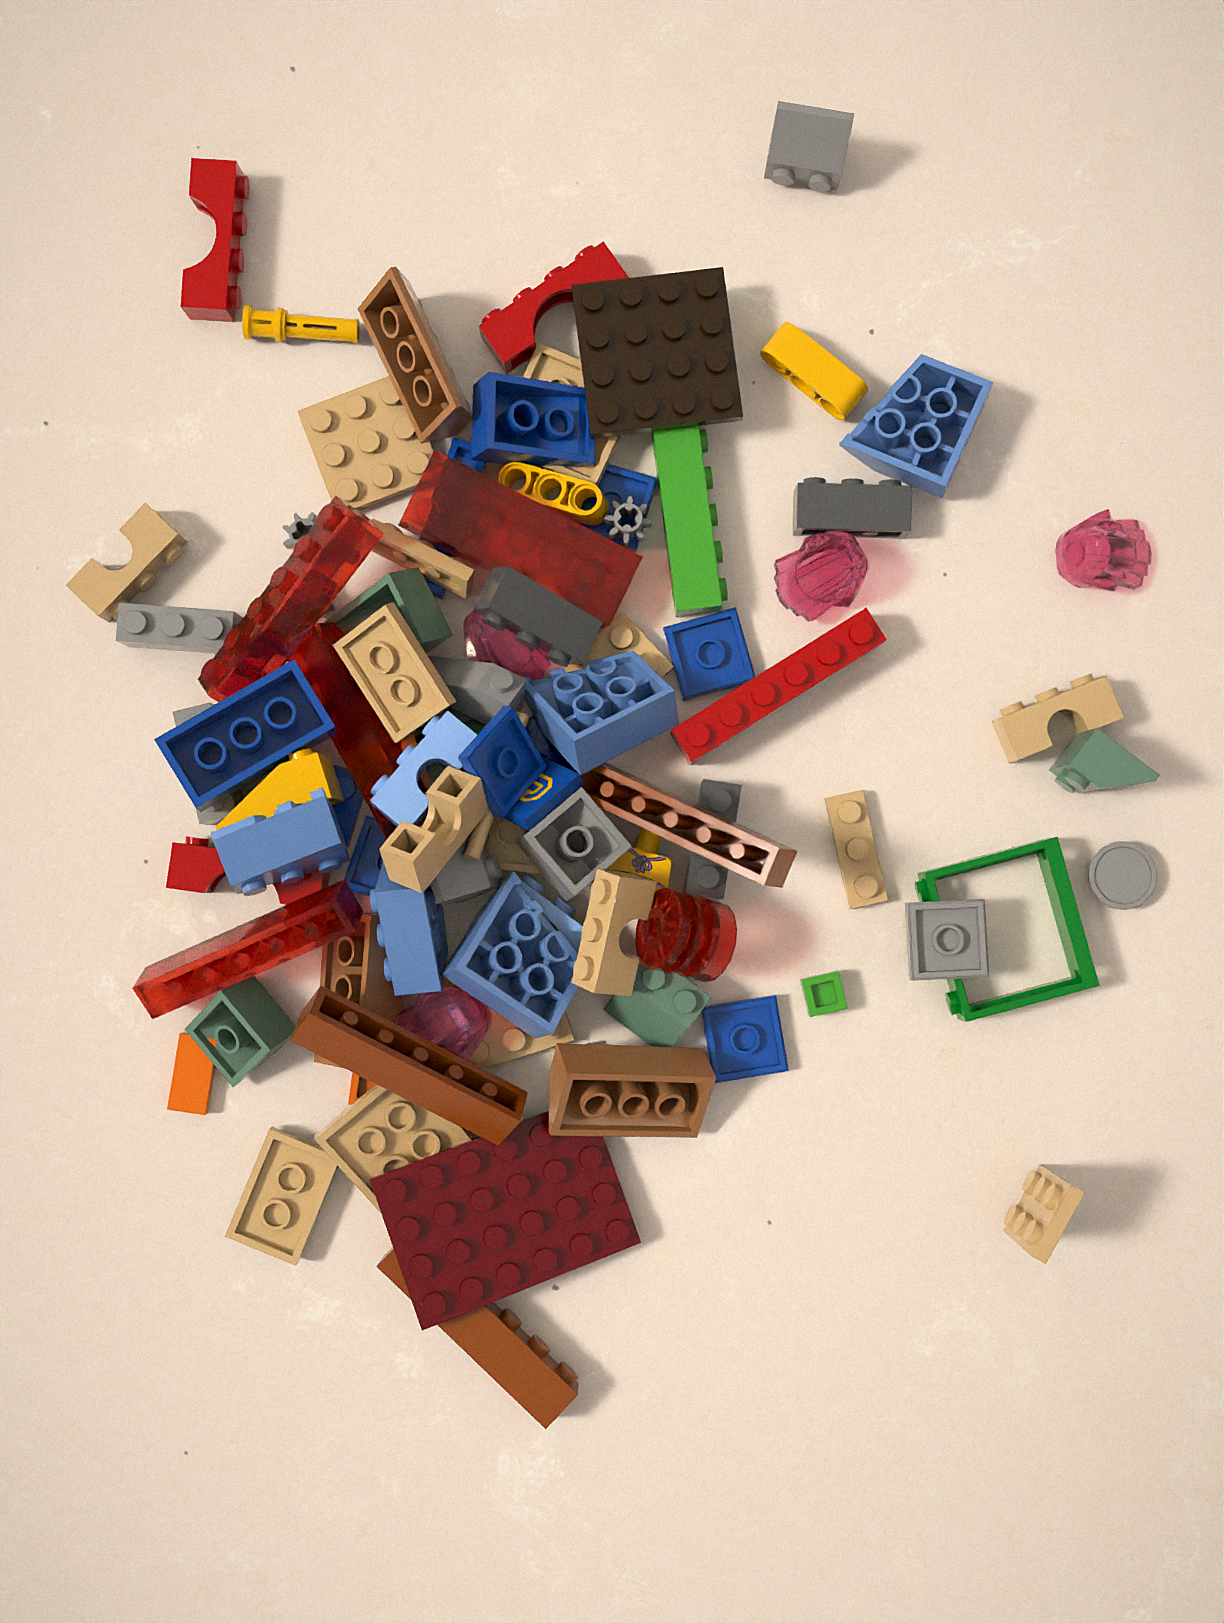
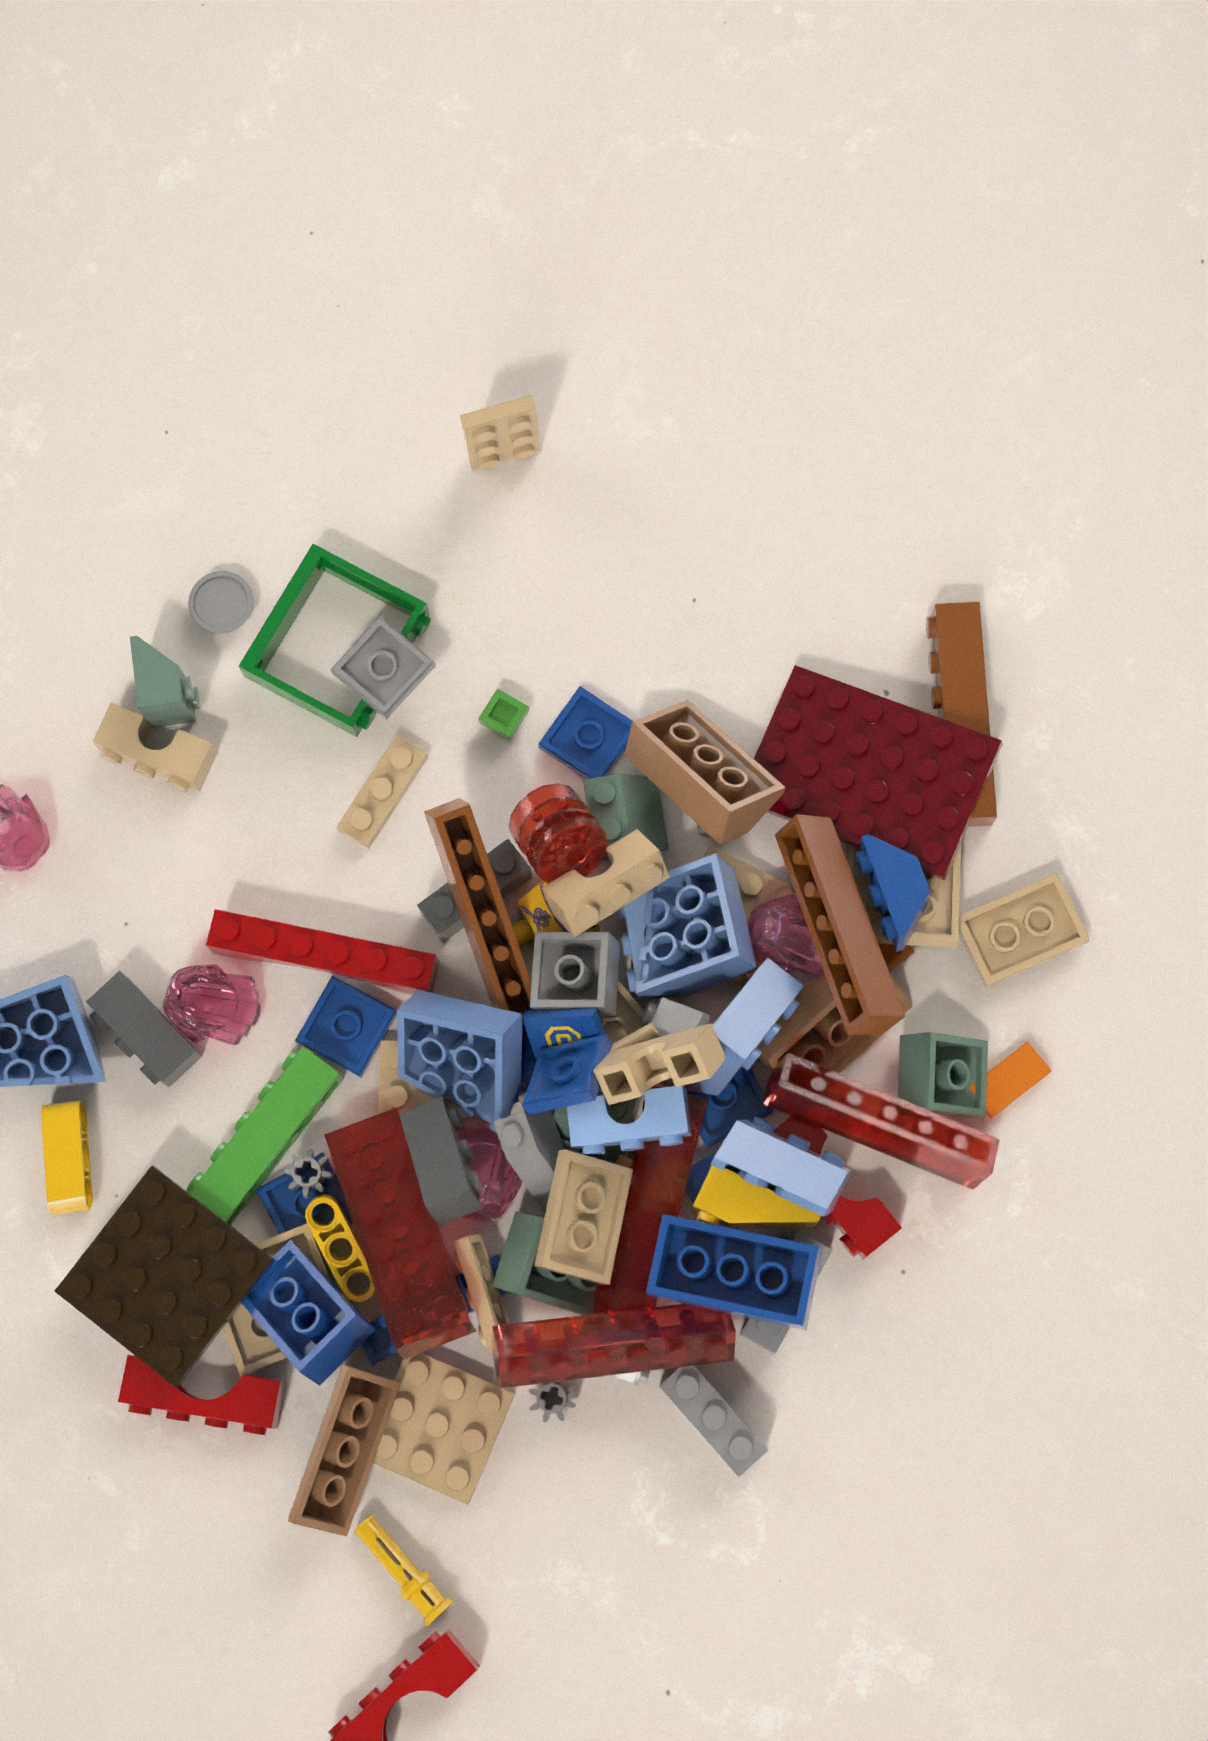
camera: 130 degrees left, 10 degrees down
(153, 547) = (671, 1505): tan arch -> none
(397, 1137) = (895, 887): none -> blue slope

